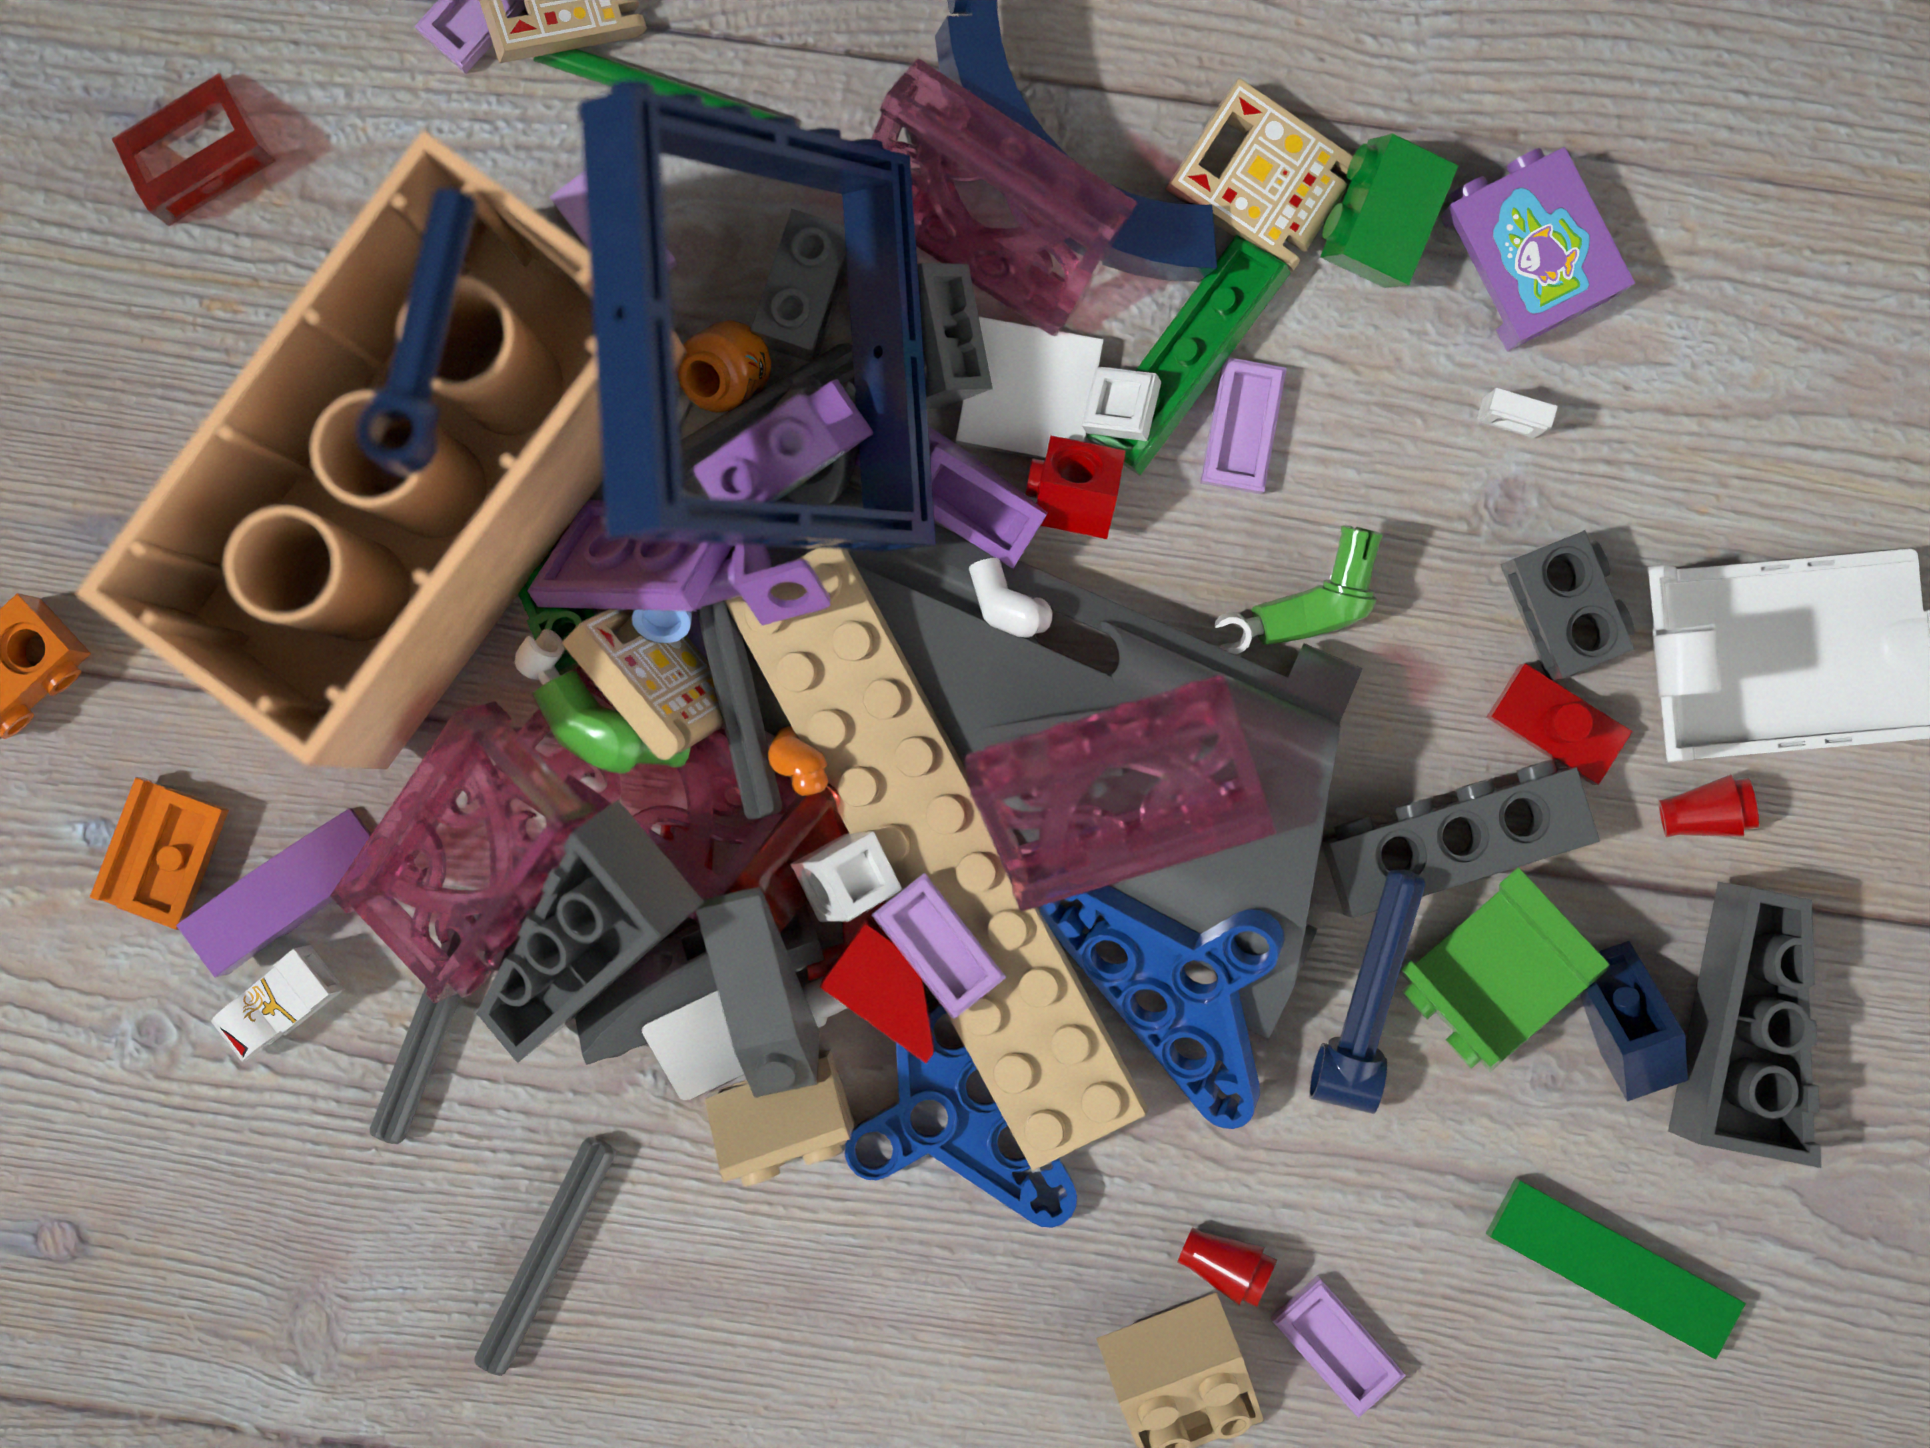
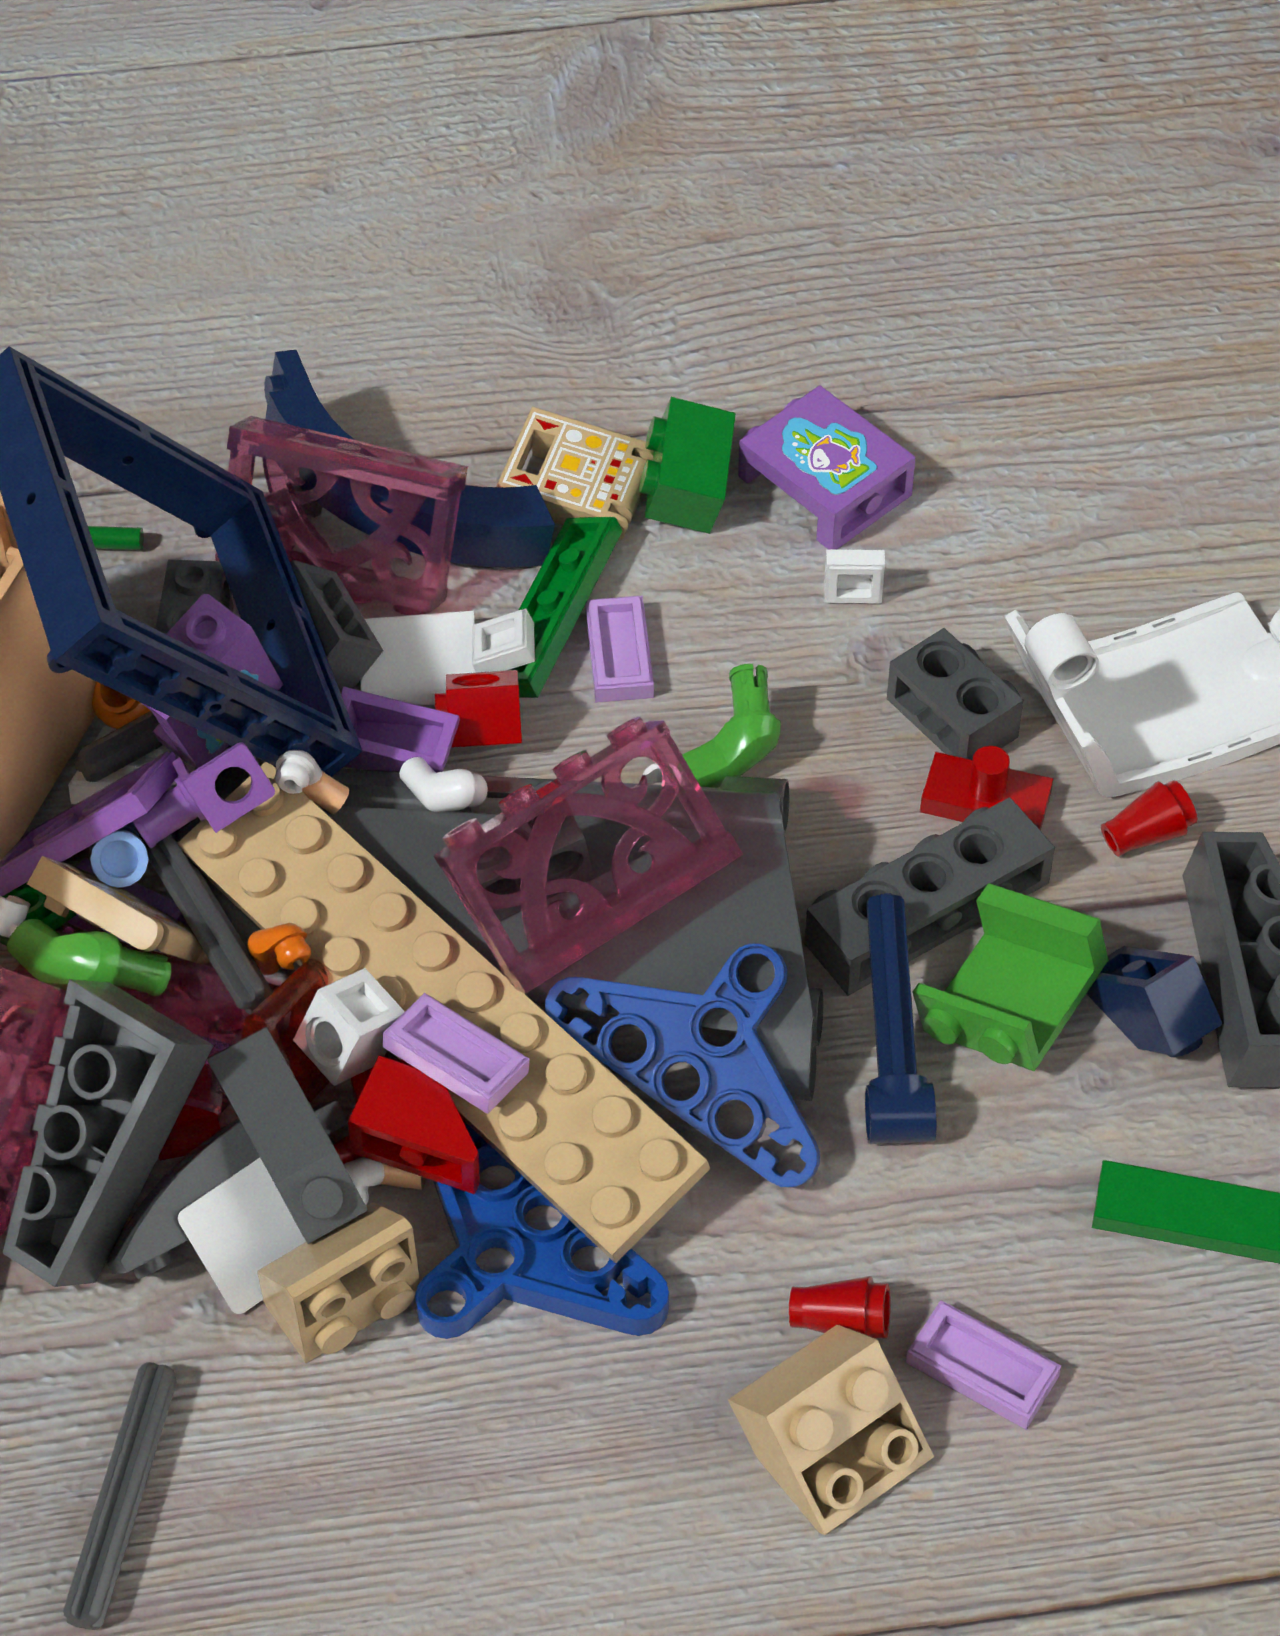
camera: 15 degrees left, 35 degrees down
(870, 569) = (300, 773): none -> arm

